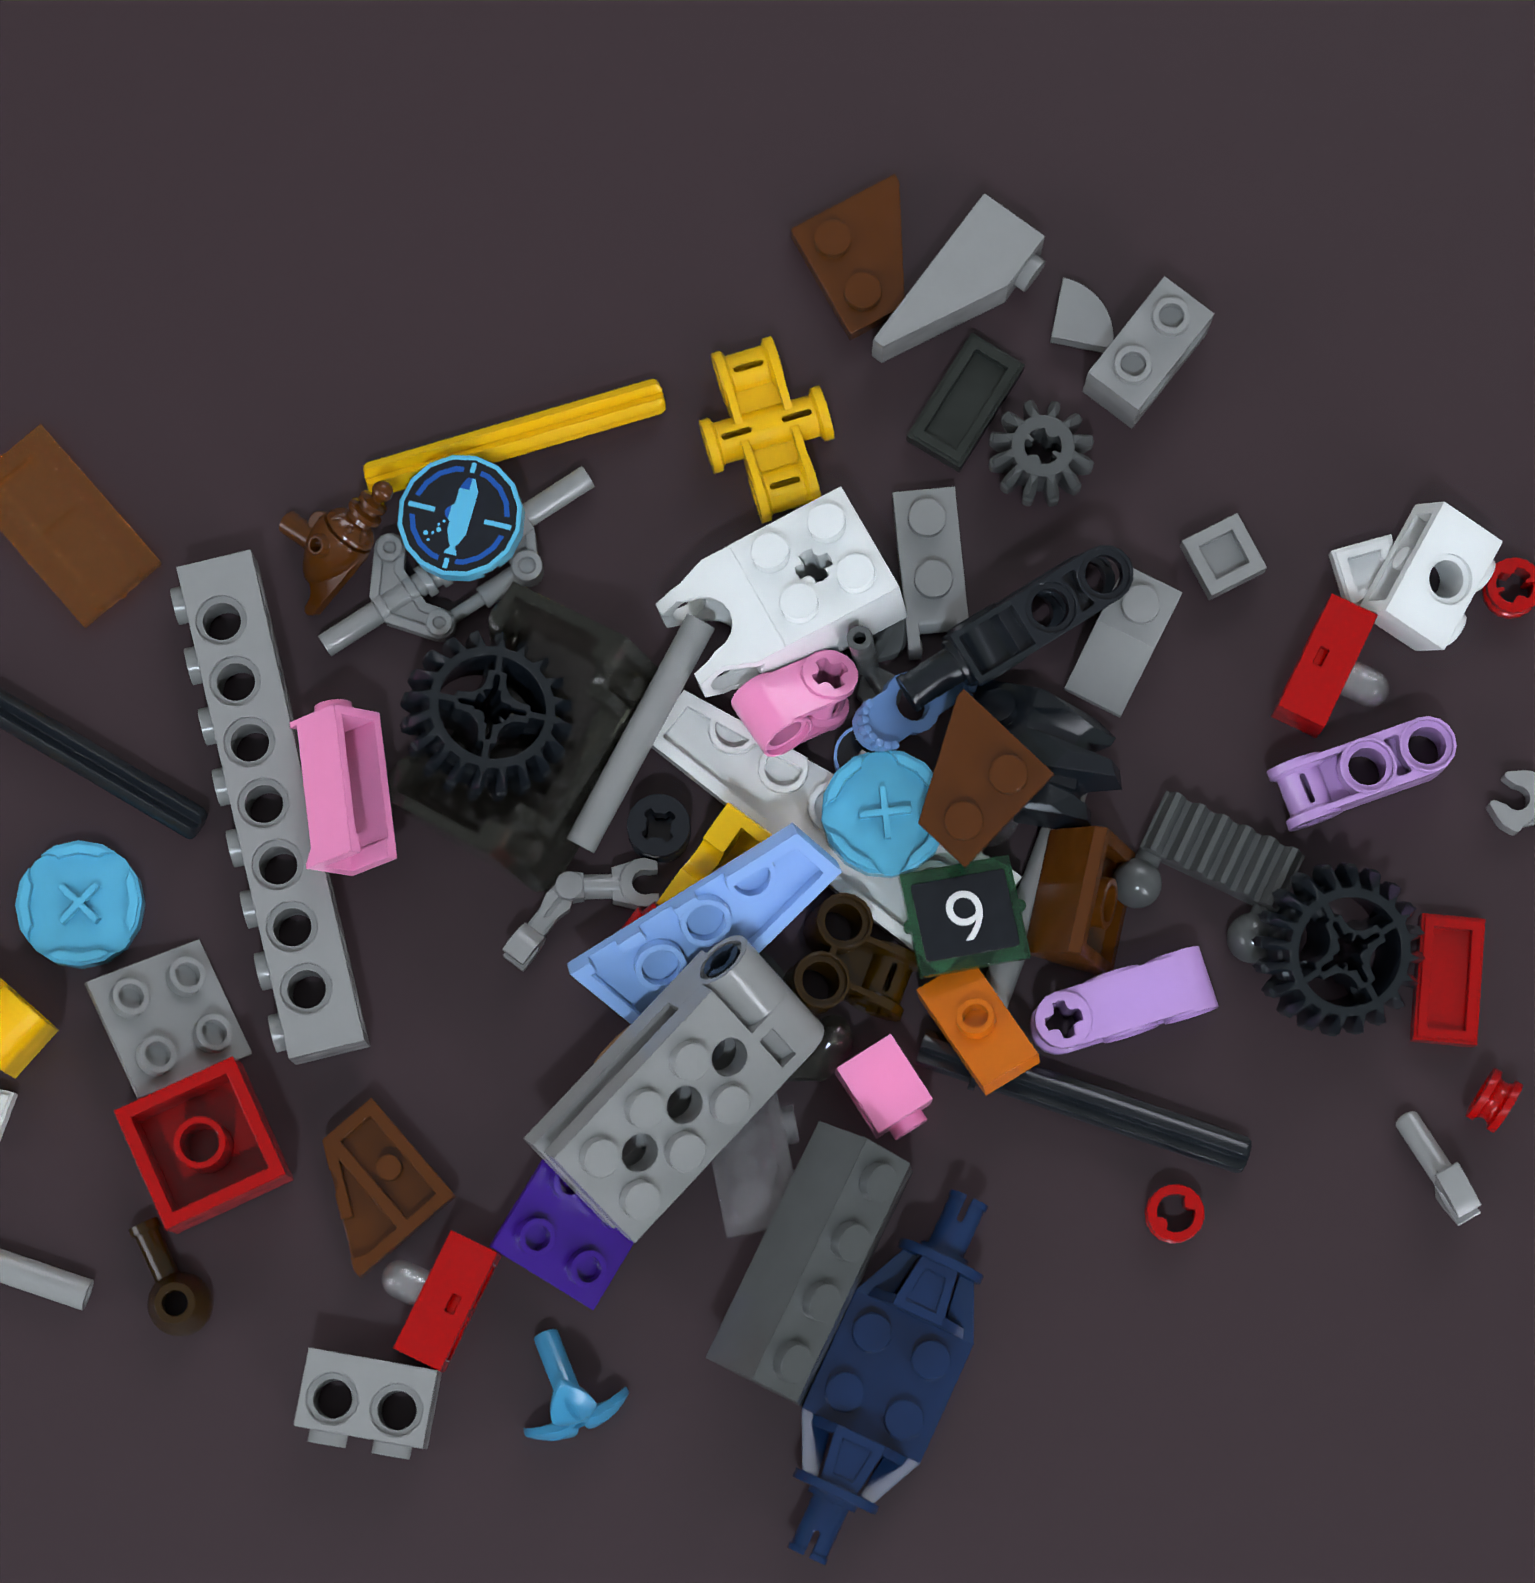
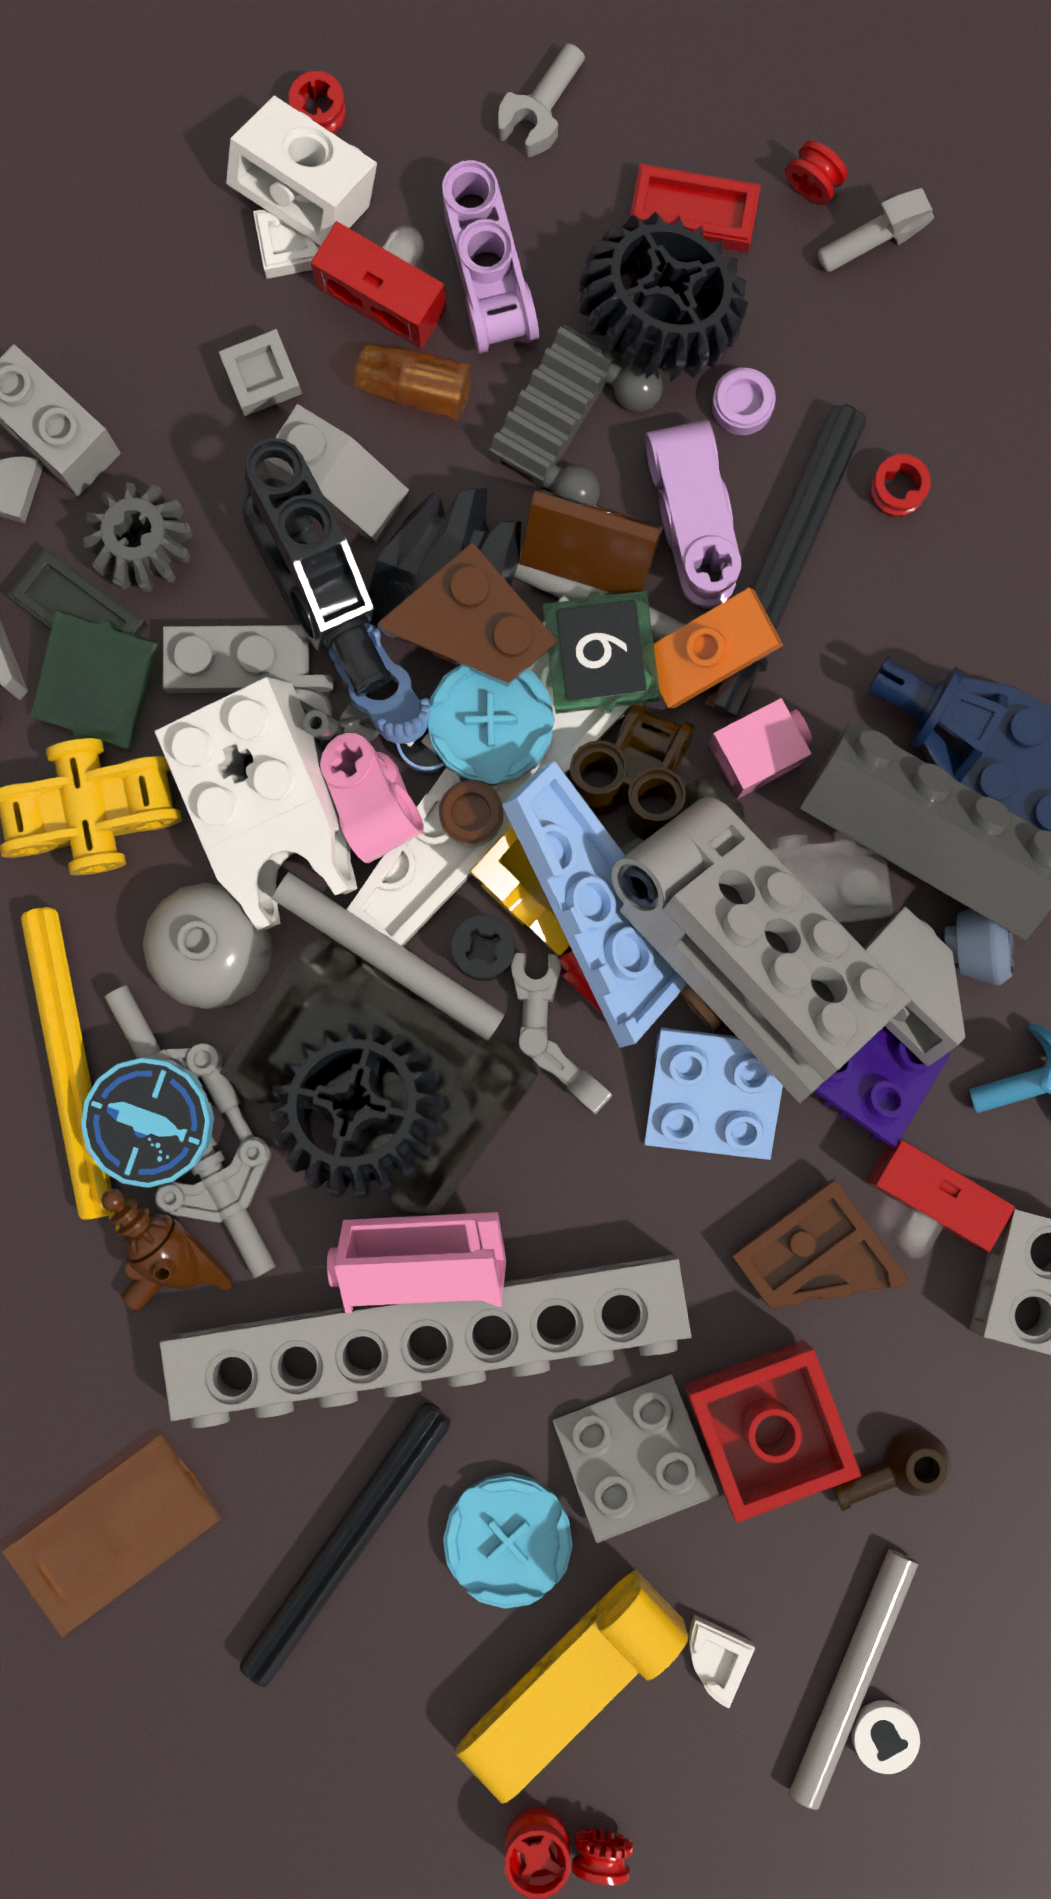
camera: 85 degrees left, 5 degrees up
(526, 1064) = (711, 1096): none -> light blue hinge
(636, 557) = (205, 947): none -> light grey cylinder
(665, 1260) = (927, 973): none -> light grey slope
(694, 1324) = (981, 948): none -> sand blue cone
(790, 798) = (471, 813): none -> reddish brown tile
(895, 424) = (93, 679): none -> clear green piece
(1231, 710) = (415, 379): none -> clear orange hinge
(1248, 1046) = (743, 401): none -> lavender tile

